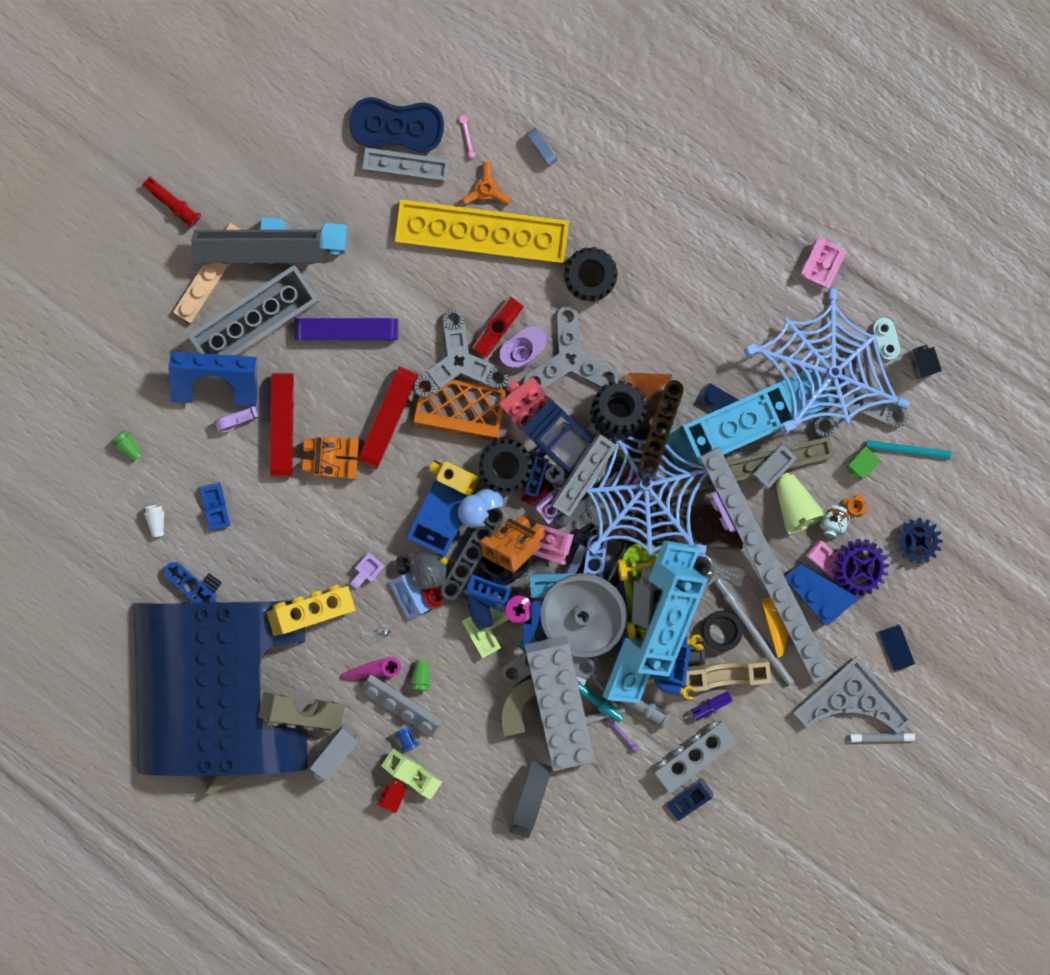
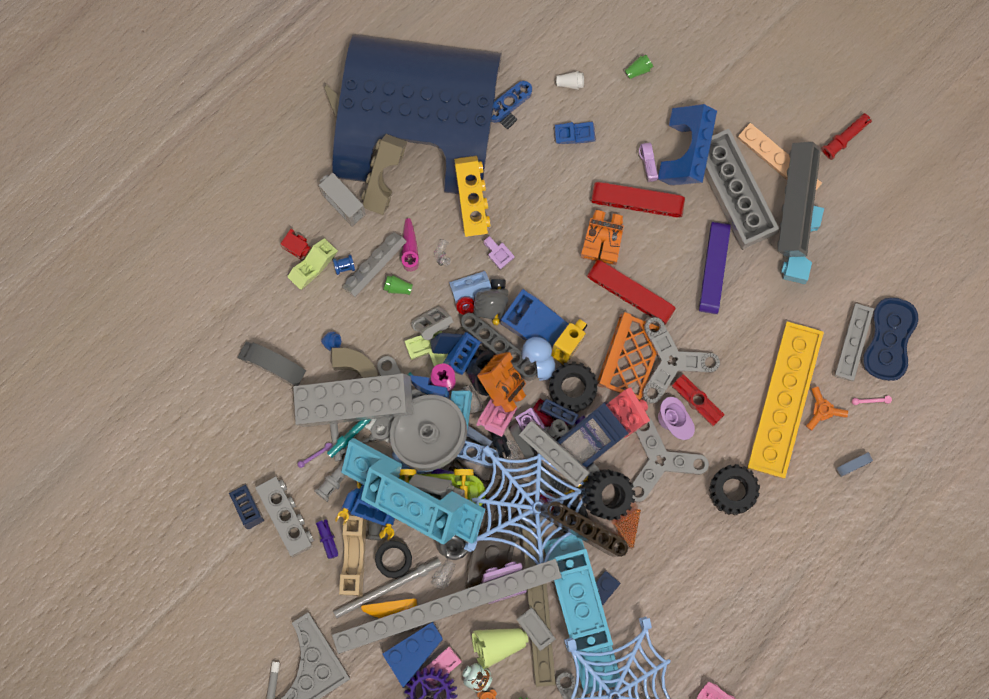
camera: 100 degrees right, 10 degrees down
(453, 626) = (436, 318): none -> light grey plate
(494, 738) = (331, 340): none -> blue plate

